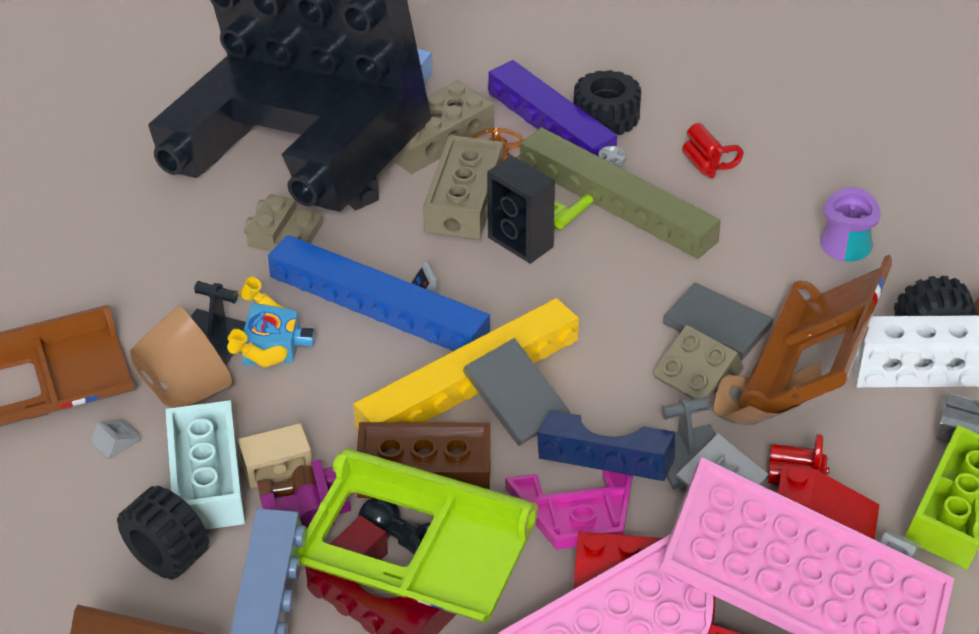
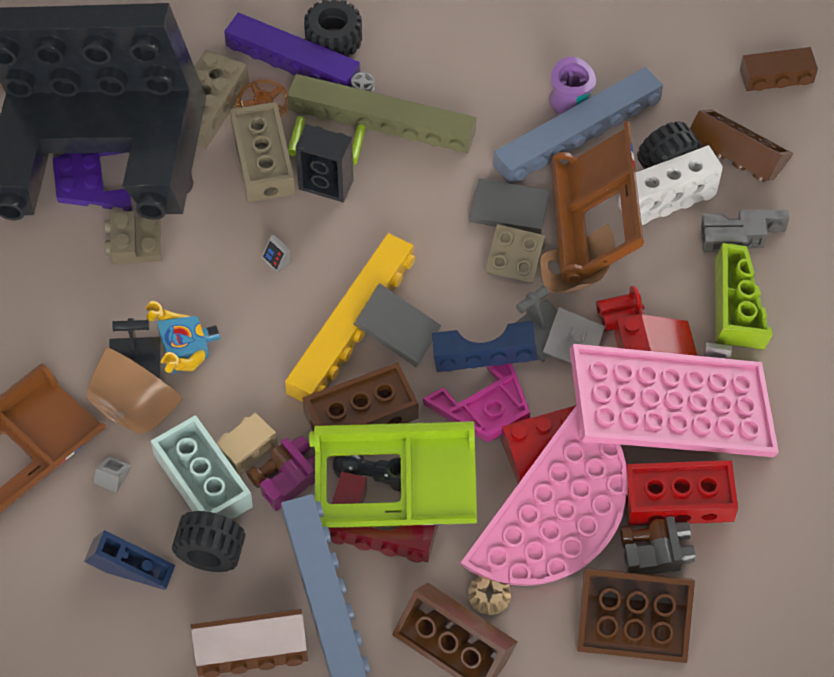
camera: 25 degrees left, 15 degrees up
(70, 526) = (128, 561): none -> dark blue slope
(261, 162) = (81, 182): none -> dark purple wing
(377, 294) = (245, 276): blue brick -> none
(706, 151) = (433, 52): red piece -> none
(836, 263) = (577, 125): none -> sand blue brick

